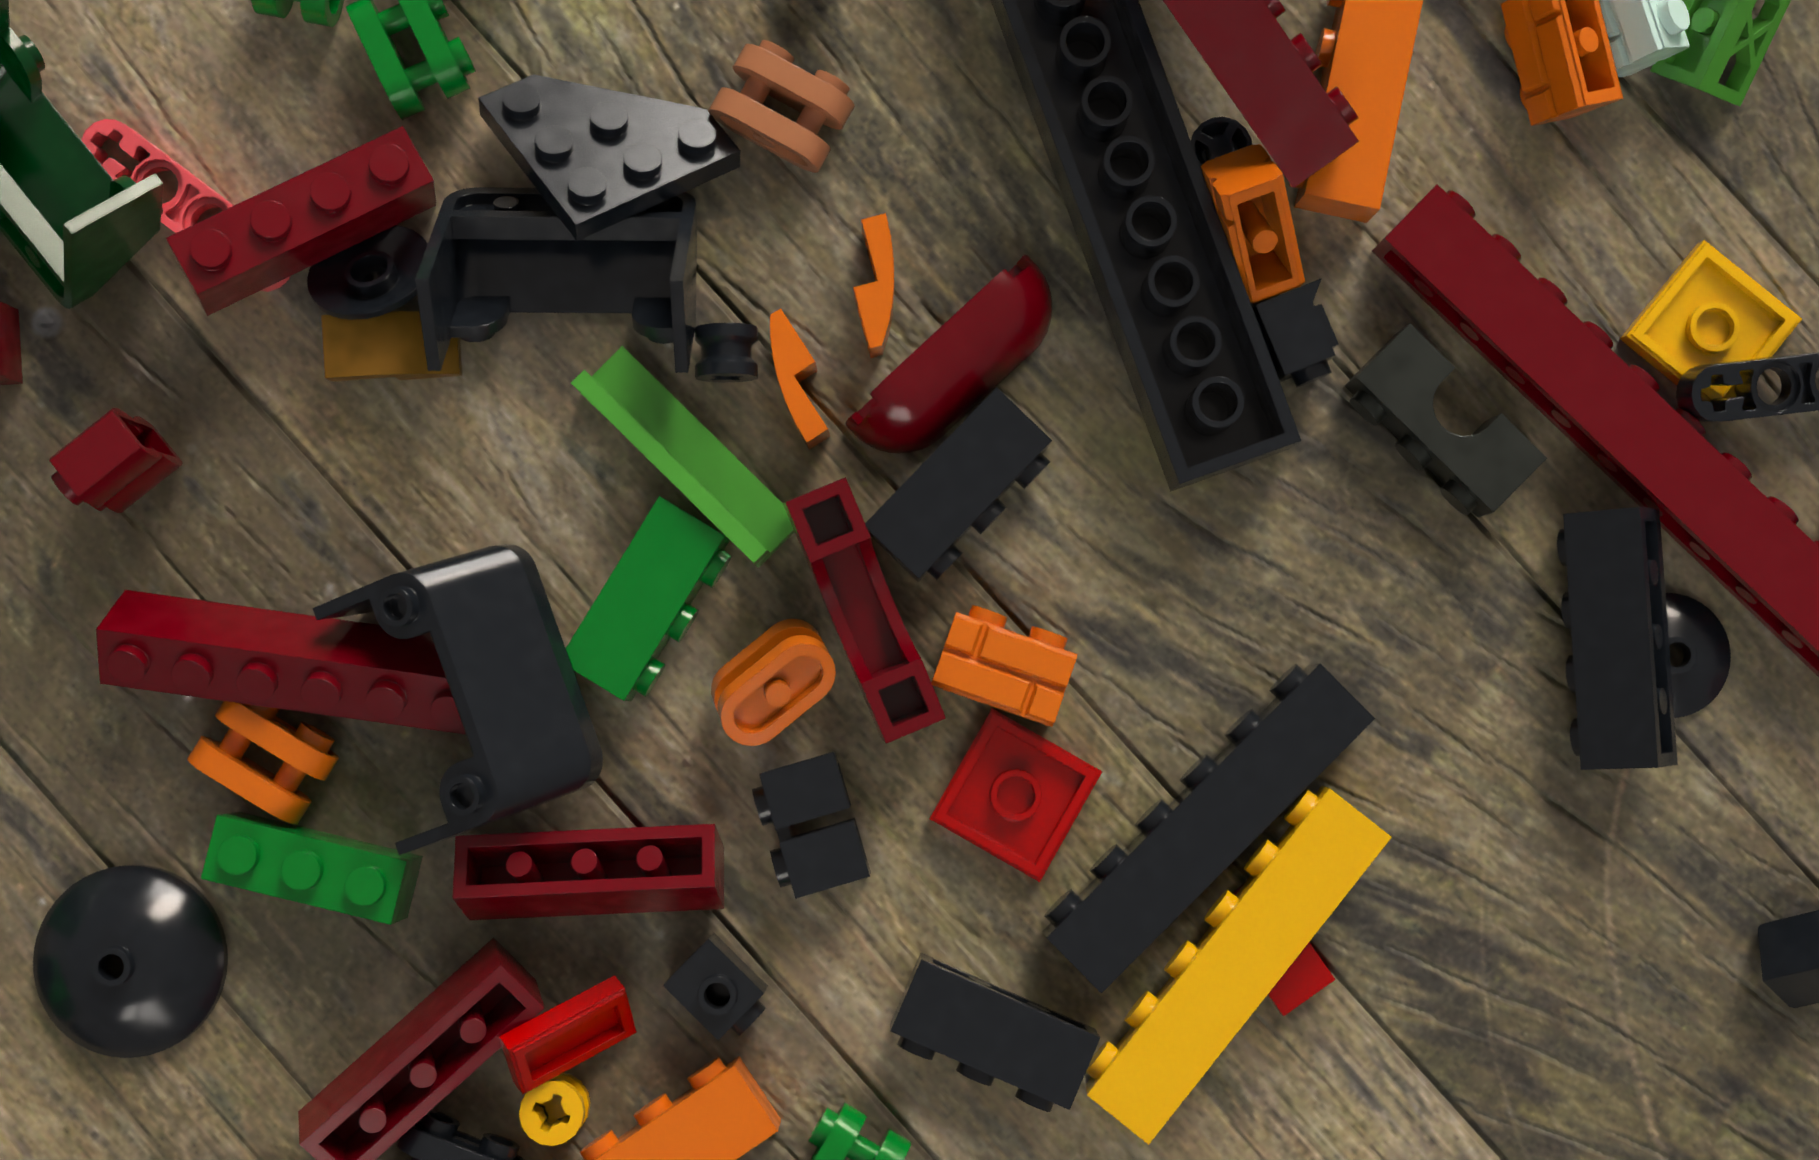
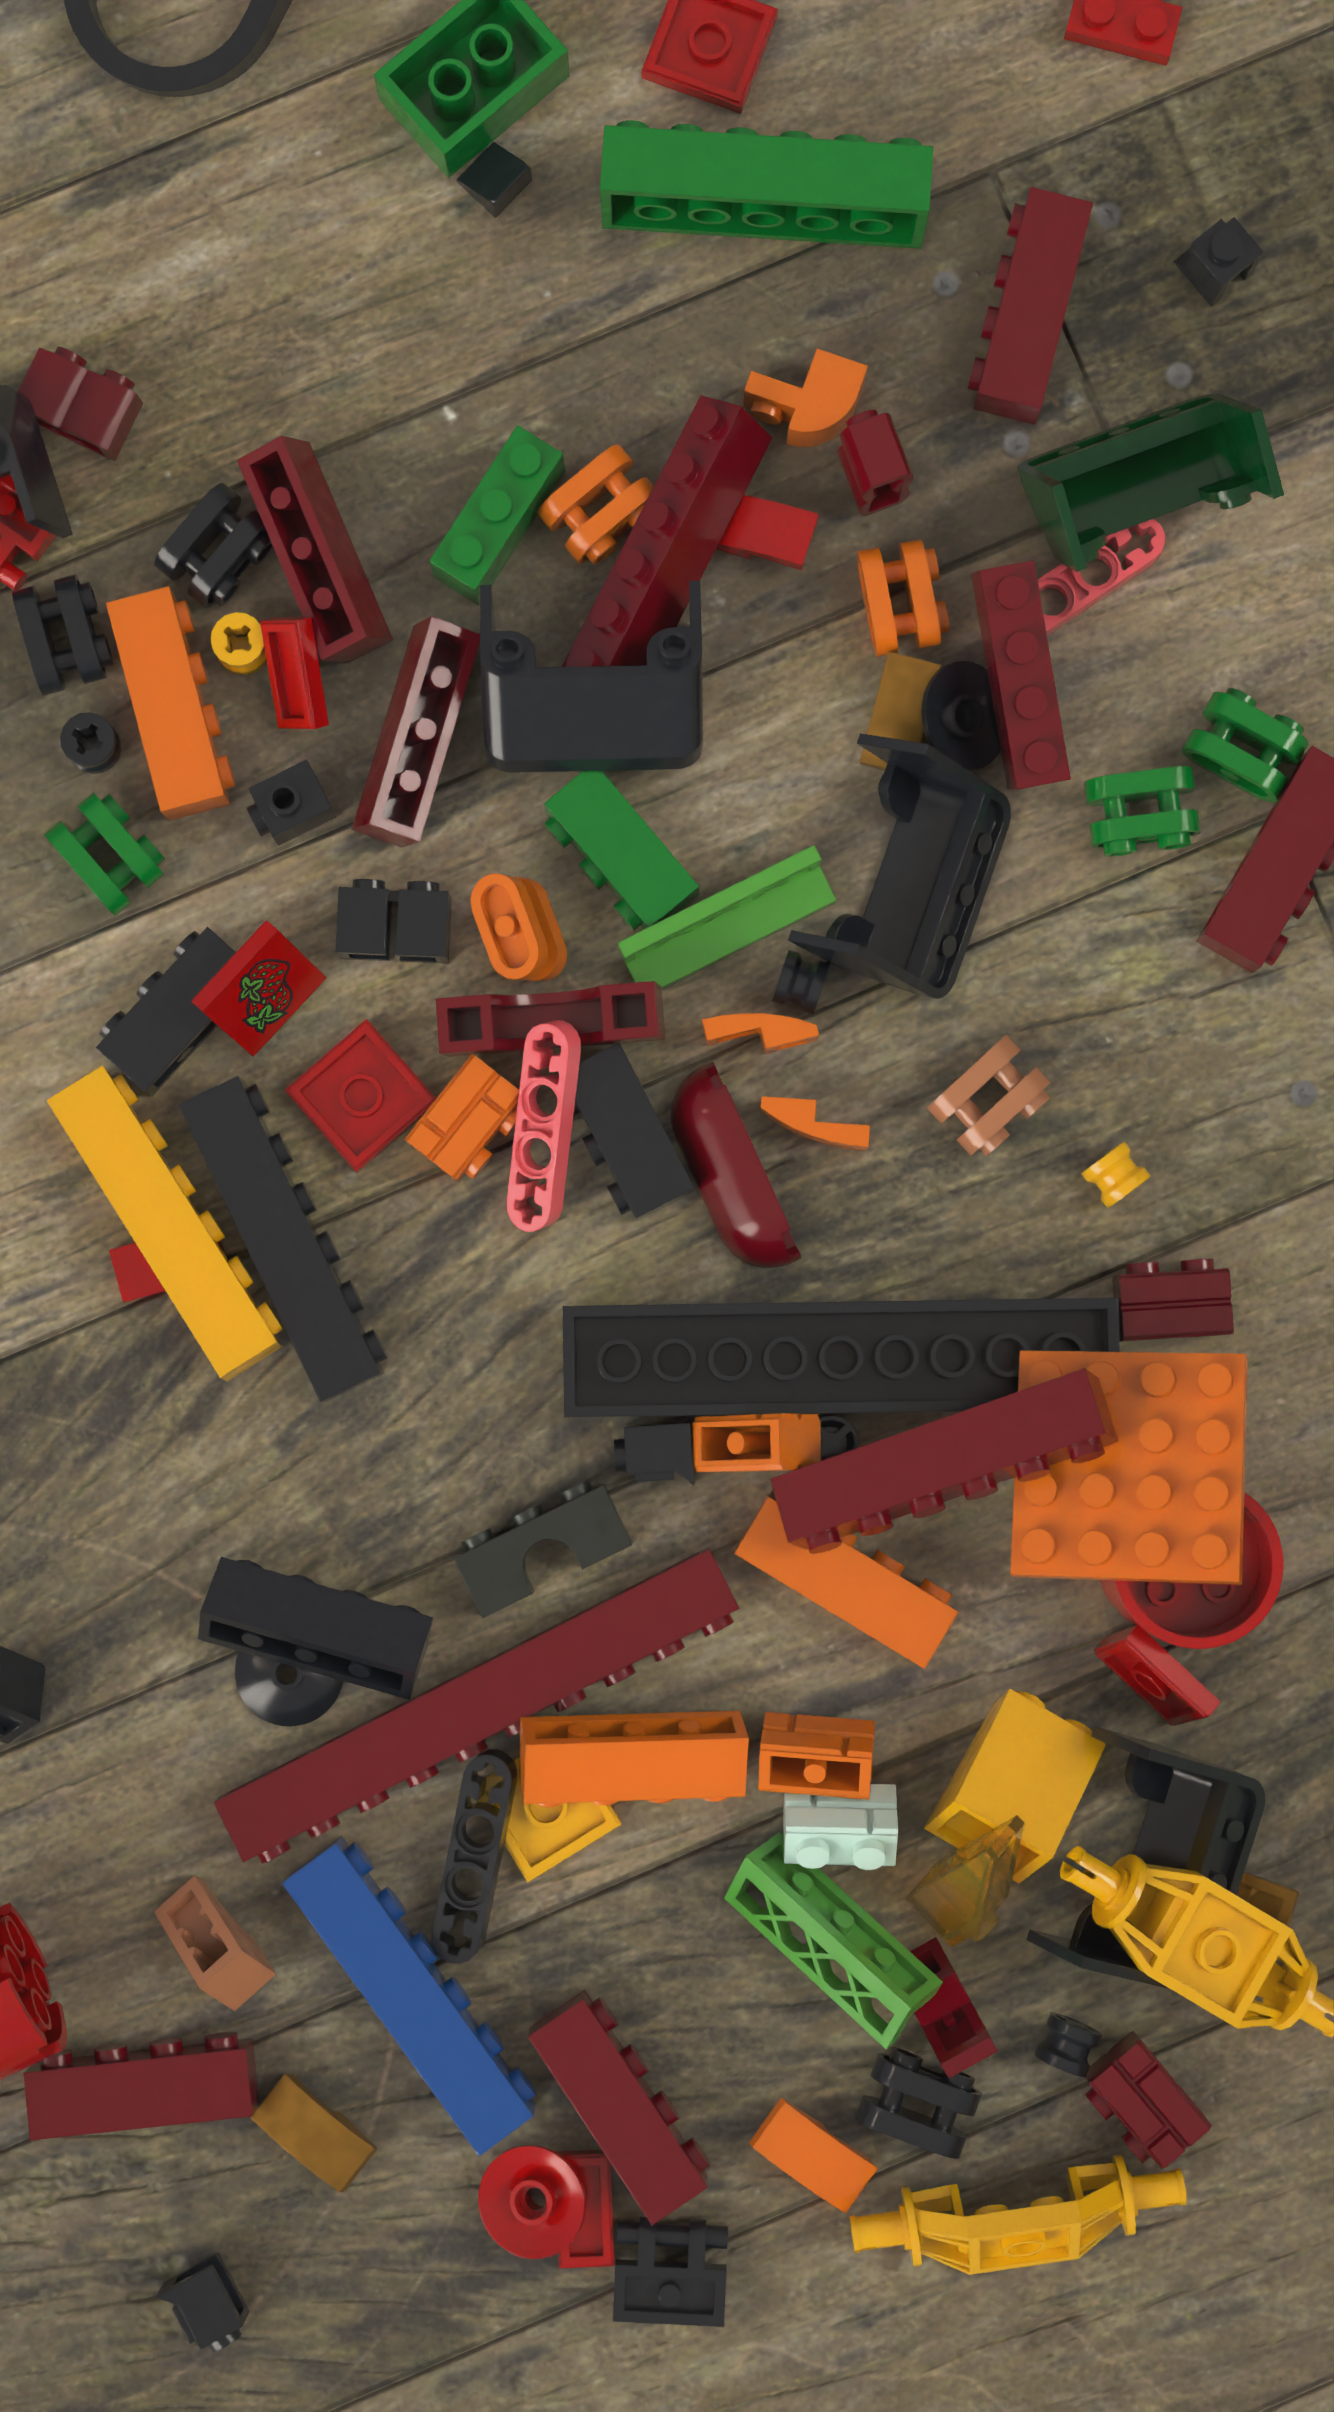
camera: 115 degrees right, 0 degrees up
(75, 552) = (816, 410): none -> orange brick
(169, 952) = (480, 381): black dish -> none
(225, 378) = (925, 616): none -> orange brick
(233, 556) = (769, 532): none -> red slope
(605, 150) = (1000, 938): black plate -> none
(940, 949) = (259, 988): none -> red tile
(984, 571) = (534, 1123): none -> coral beam
(1637, 245) = (633, 1757): none -> orange brick

